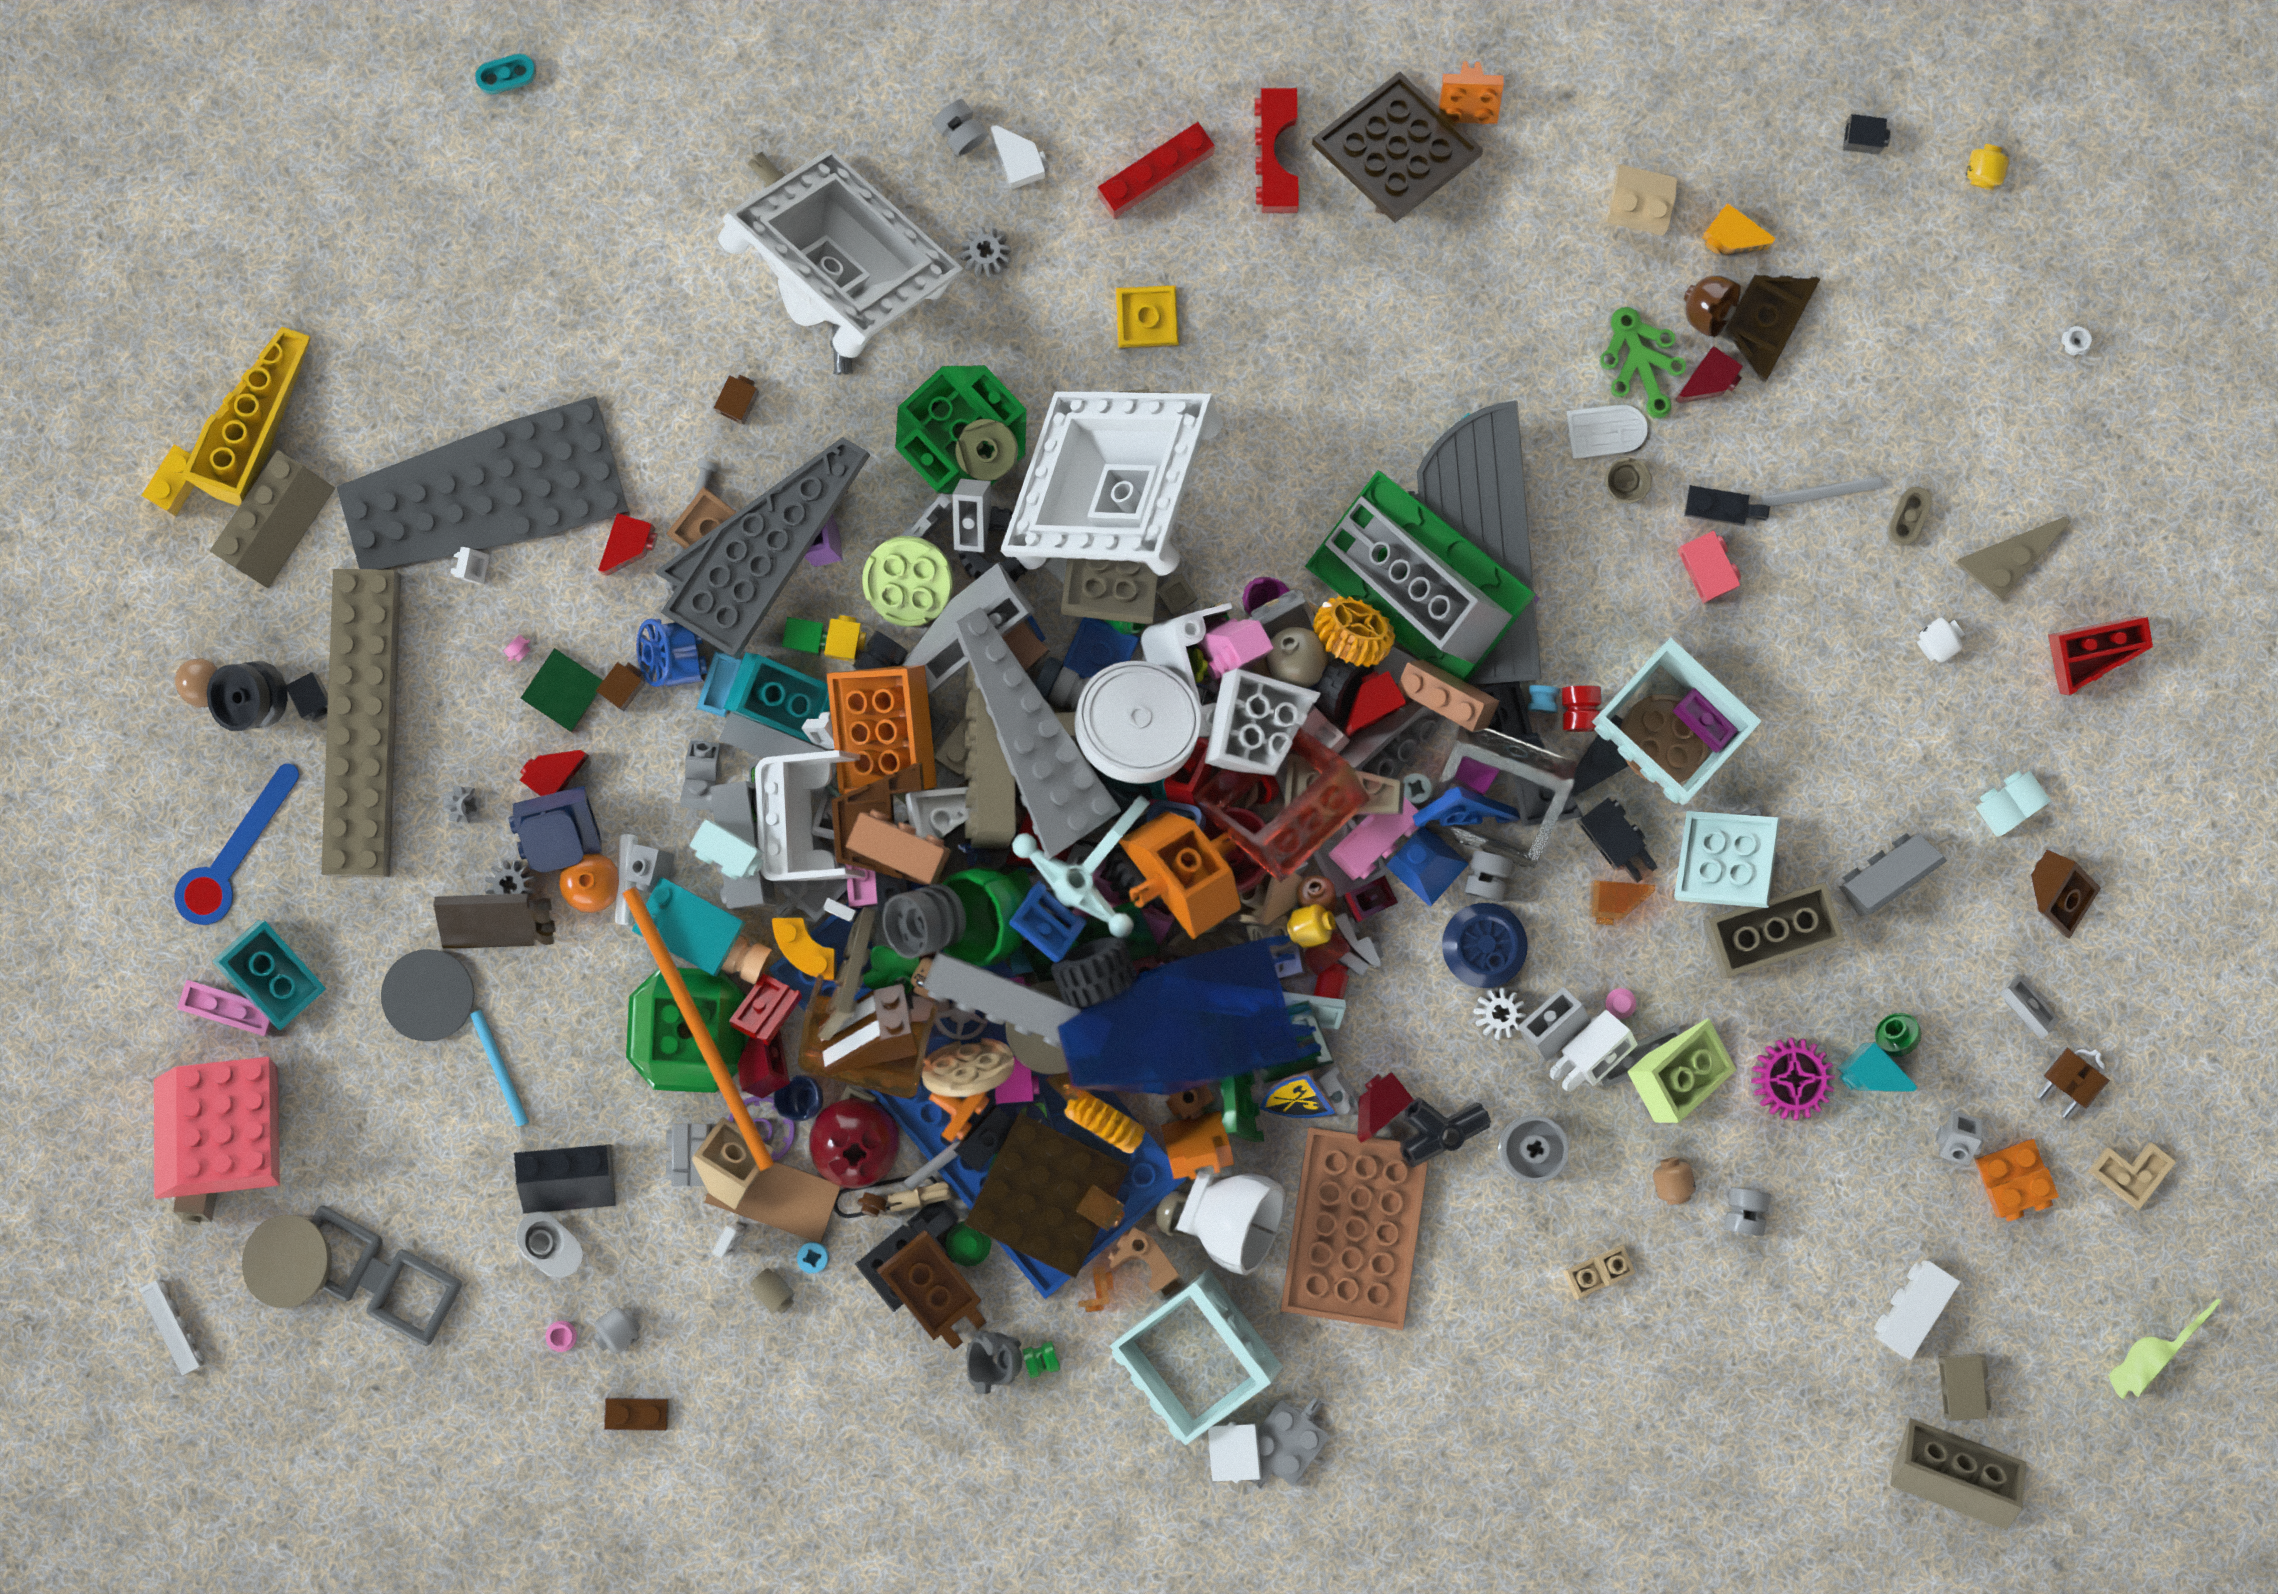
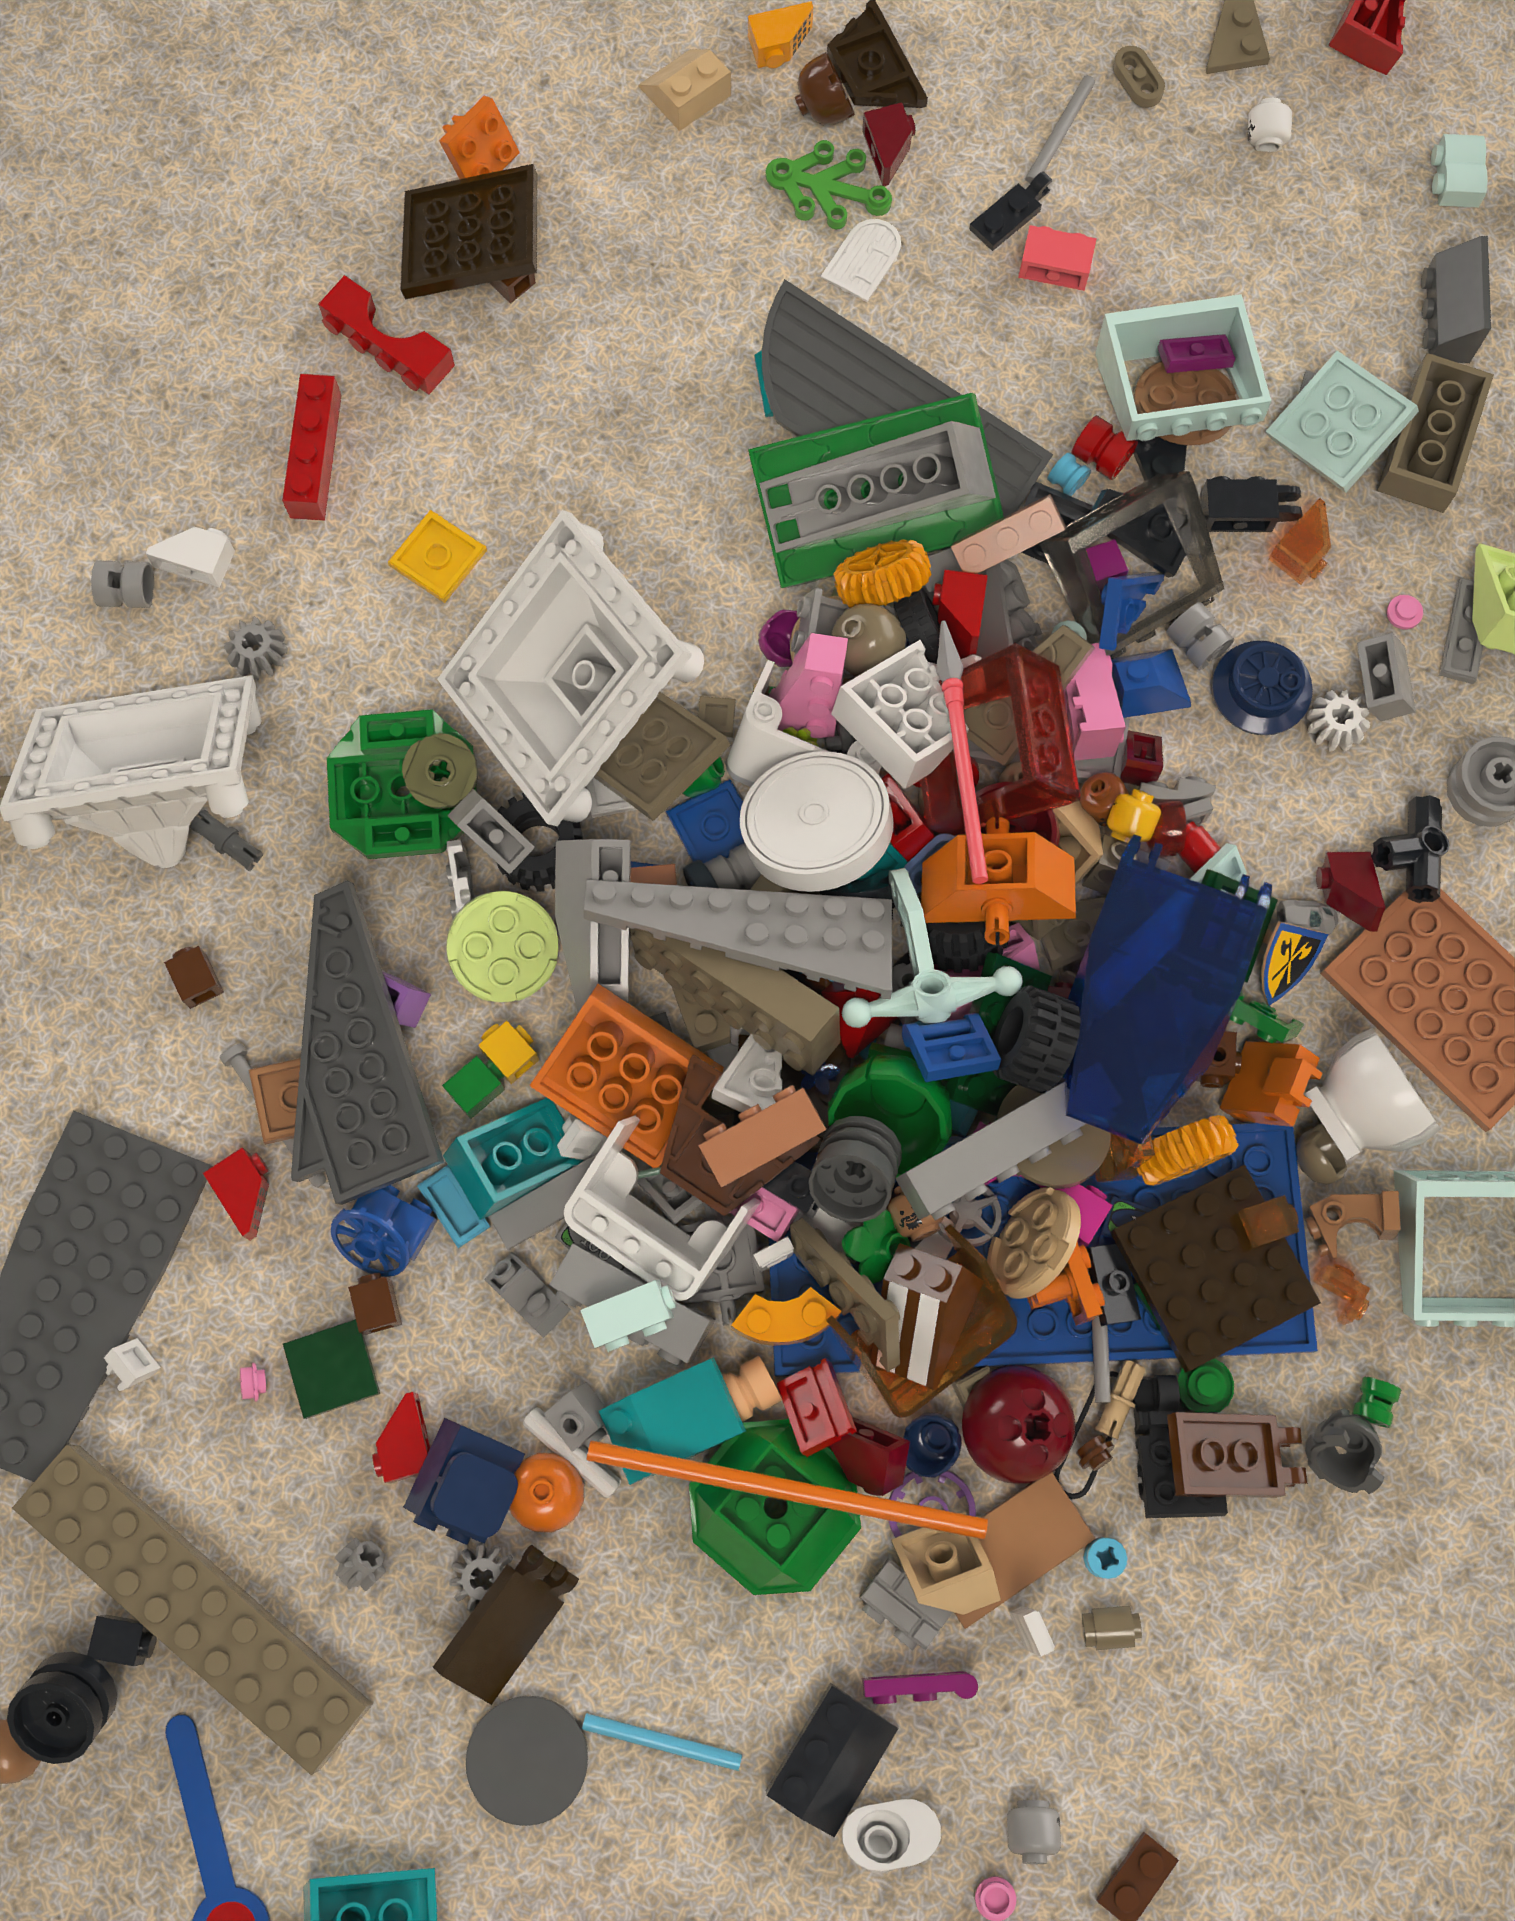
camera: 50 degrees left, 10 degrees down
(649, 1200) = (922, 1686): none -> magenta plate
(882, 653) = (550, 1022): black wheel -> none
(1306, 731) = (950, 672): none -> coral piece
(1594, 1052) = (1437, 660): white hinge -> none
(1628, 470) = (926, 254): dark tan hair -> none

